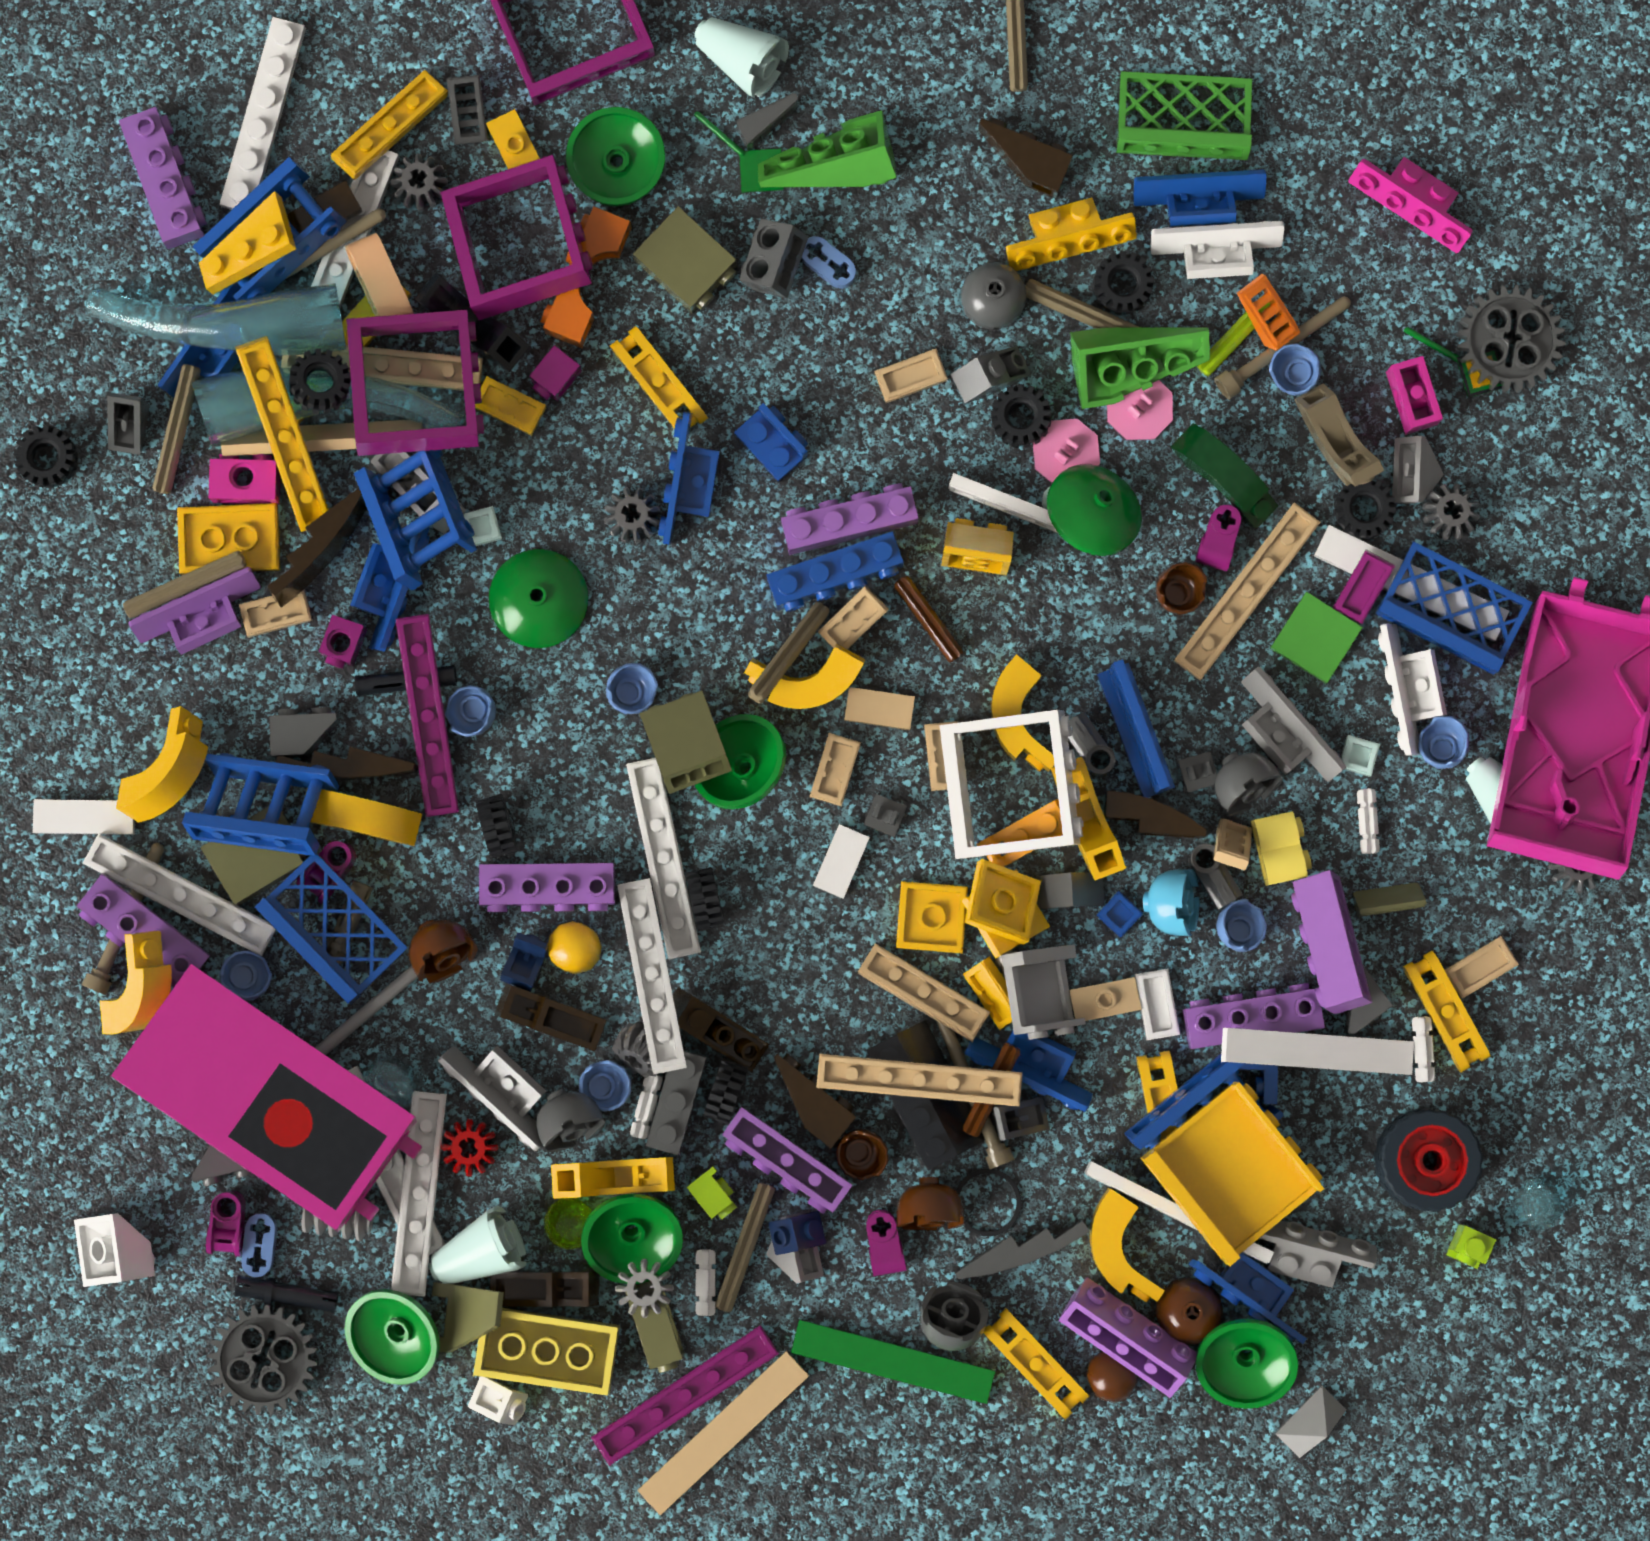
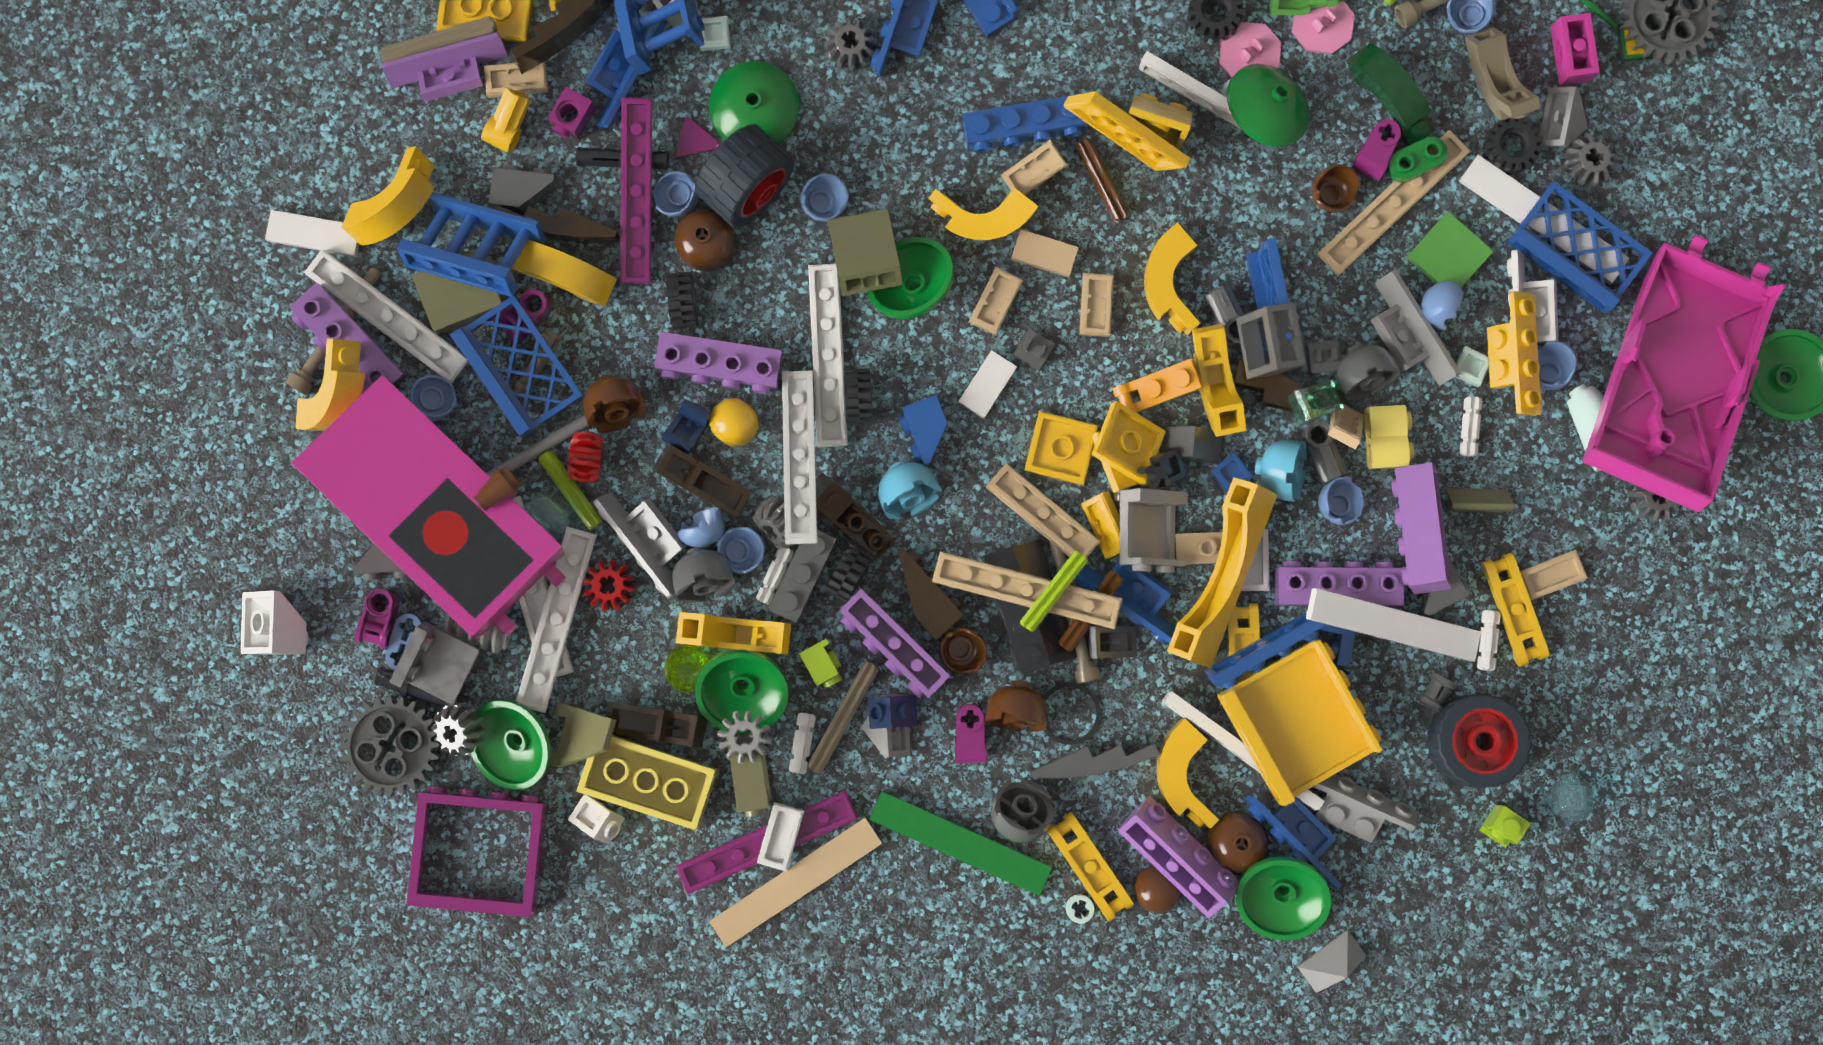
camera: 10 degrees right, 0 degrees up
(271, 668) = (503, 128): none -> yellow piece
(299, 1262) = (435, 662): none -> flat silver bracket
(335, 1329) = (458, 729): none -> flat silver gear
(337, 1066) = (498, 488): none -> reddish brown cone
(377, 1514) = (470, 798): none -> magenta window
(409, 1050) = (570, 490): none -> lime axle
(421, 1013) = (585, 457): none -> red gear
(480, 1250) = (603, 679): light aqua cone -> none
(482, 646) = (694, 140): none -> magenta piece
(523, 764) = (710, 252): none -> reddish brown cylinder
(542, 681) = (744, 175): none -> black wheel
(563, 1069) = (705, 530): none -> medium blue hair
(699, 1386) = (780, 836): none -> white tile
(773, 989) = (907, 489): none -> medium azure cylinder
(783, 918) = (926, 425): none -> blue slope
(788, 652) = (971, 187): dark tan axle -> none
(849, 520) = (1045, 78): medium lavender brick -> none
(945, 568) = (1126, 131): none -> yellow tile
(947, 1077) = (1054, 591): none -> lime axle
(958, 789) = (1105, 327): white window -> none
(1023, 1415) = (1071, 912): none -> light aqua bush
(1047, 924) = (1164, 469): none -> black plate
(1115, 1087) = (1244, 521): none -> yellow arch
(1135, 756) = (1271, 327): none -> dark grey window
(1195, 825) = (1314, 402): none -> clear green slope
(1265, 541) = (1418, 158): none -> green plate
(1314, 694) = (1441, 303): none -> medium blue hair
(1363, 586) = (1501, 214): magenta tile -> none
(1376, 1115) = (1436, 692): none -> dark grey bush
(1402, 737) = (1515, 354): none -> yellow bracket

